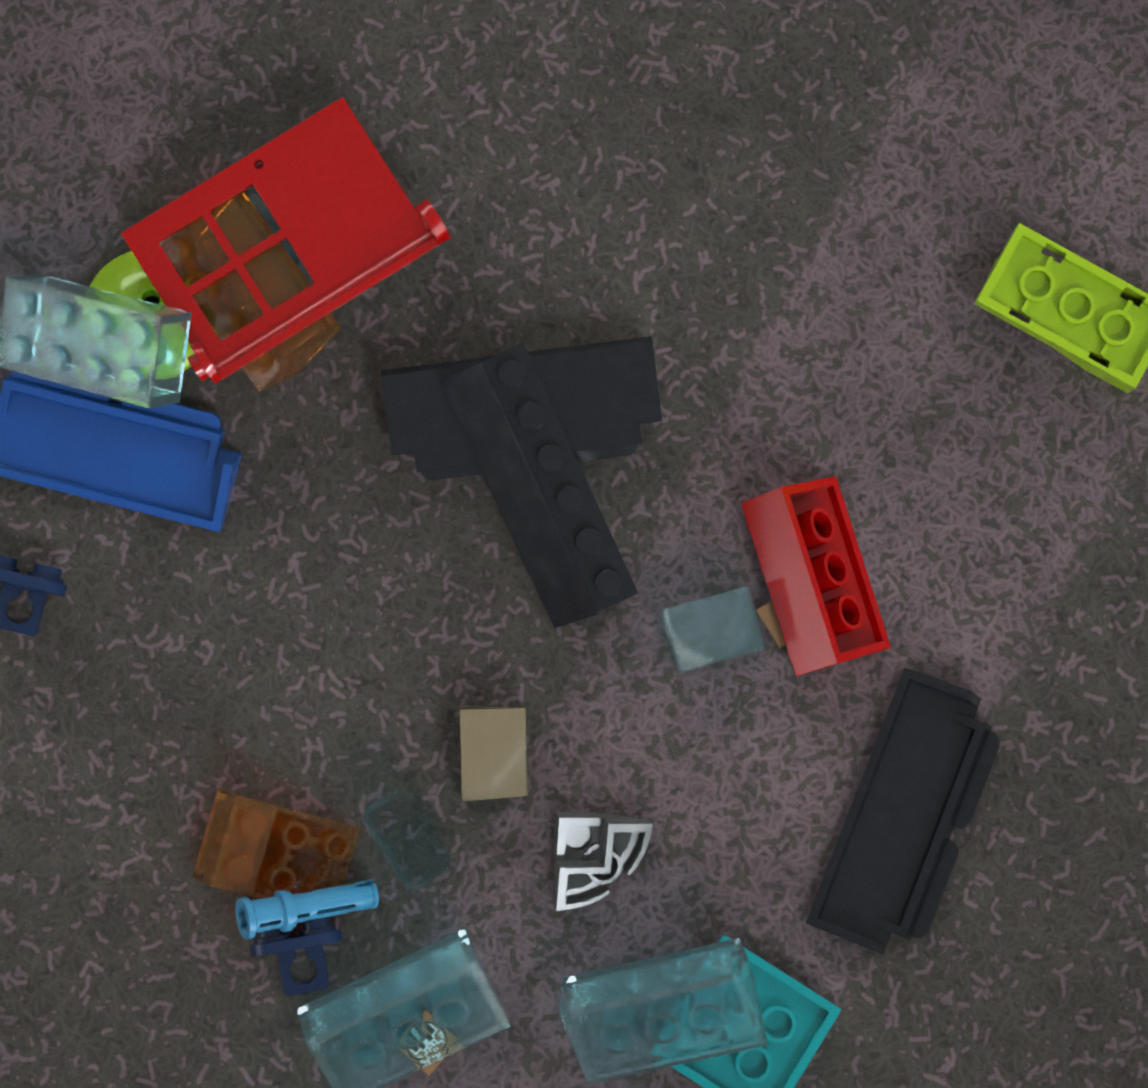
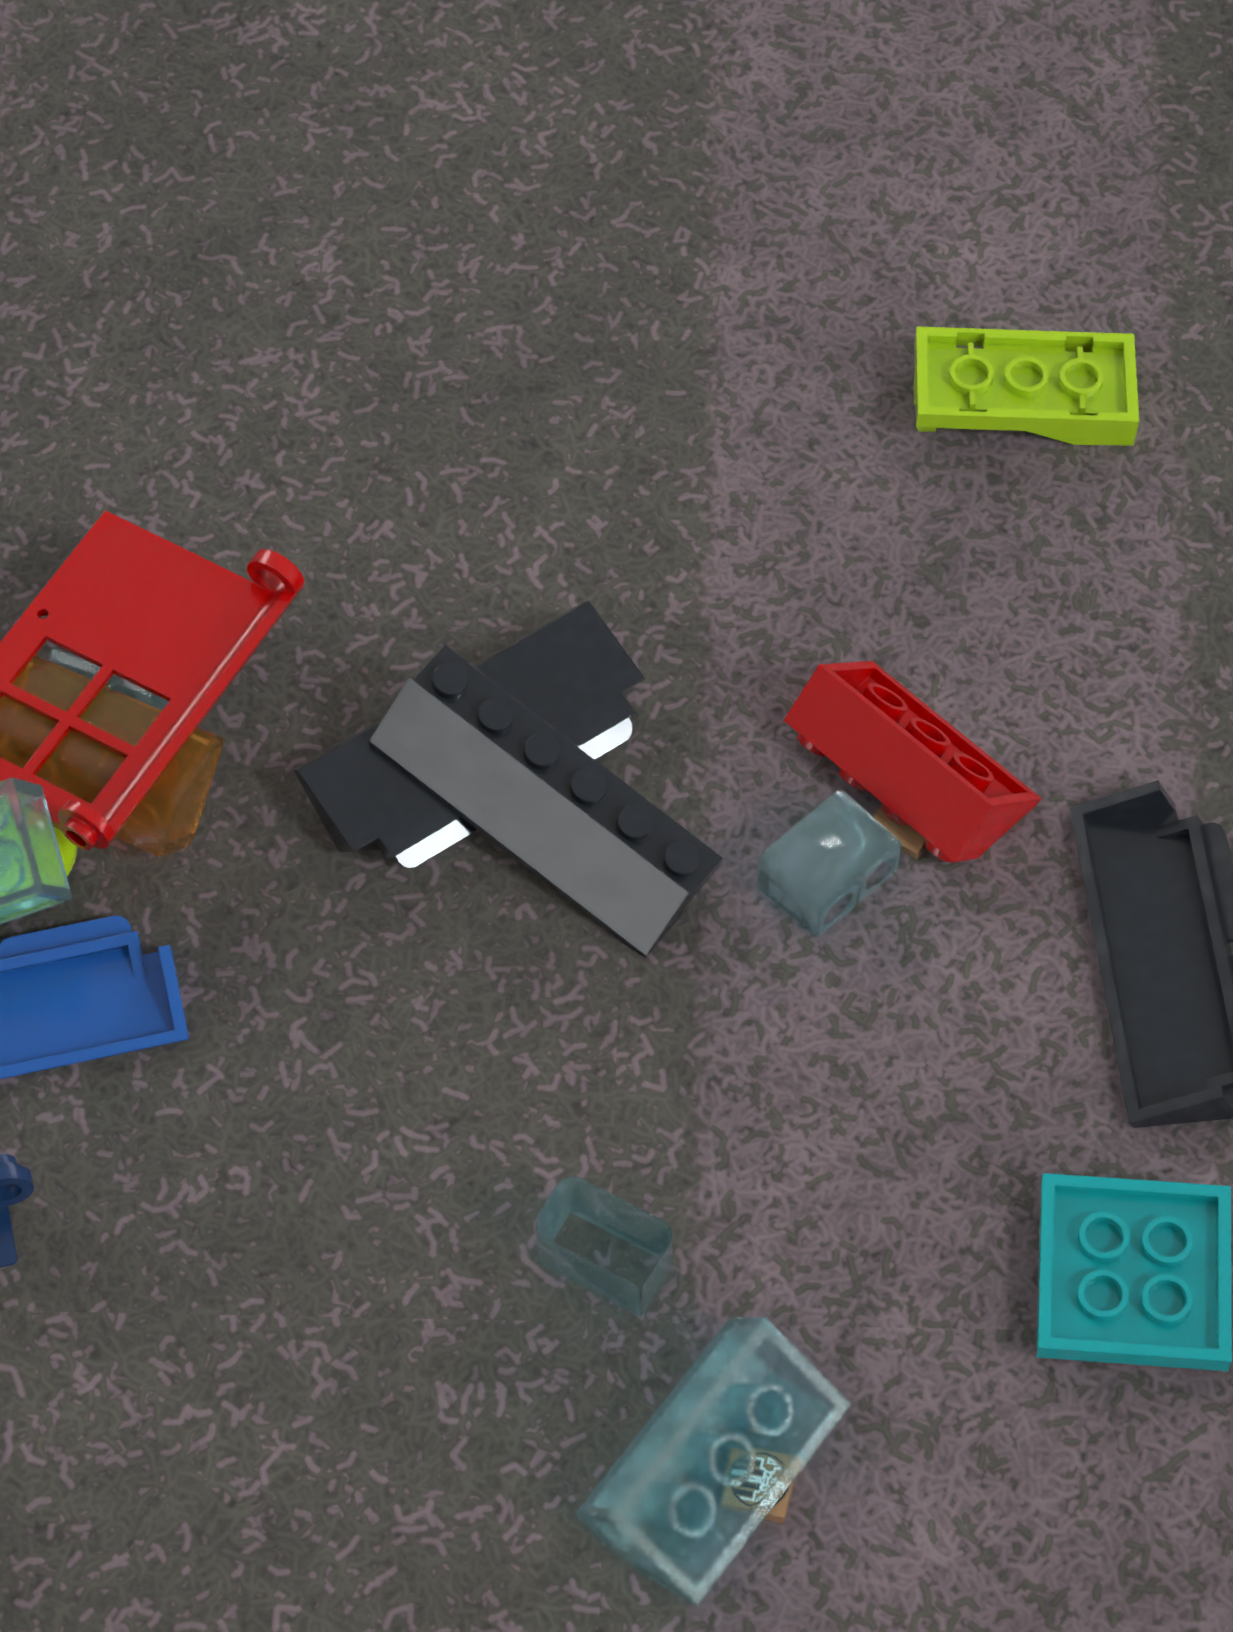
camera: 25 degrees left, 25 degrees down
(271, 847) = (445, 1350): clear orange slope -> none
(287, 909) = (500, 1386): dark azure pin -> none
(312, 938) = (516, 1448): dark blue bracket -> none
(493, 752) = (656, 1106): dark tan piece -> none
(592, 853) = (834, 1170): dark grey brick -> none
(662, 1011) = (1025, 1281): clear light blue slope -> none

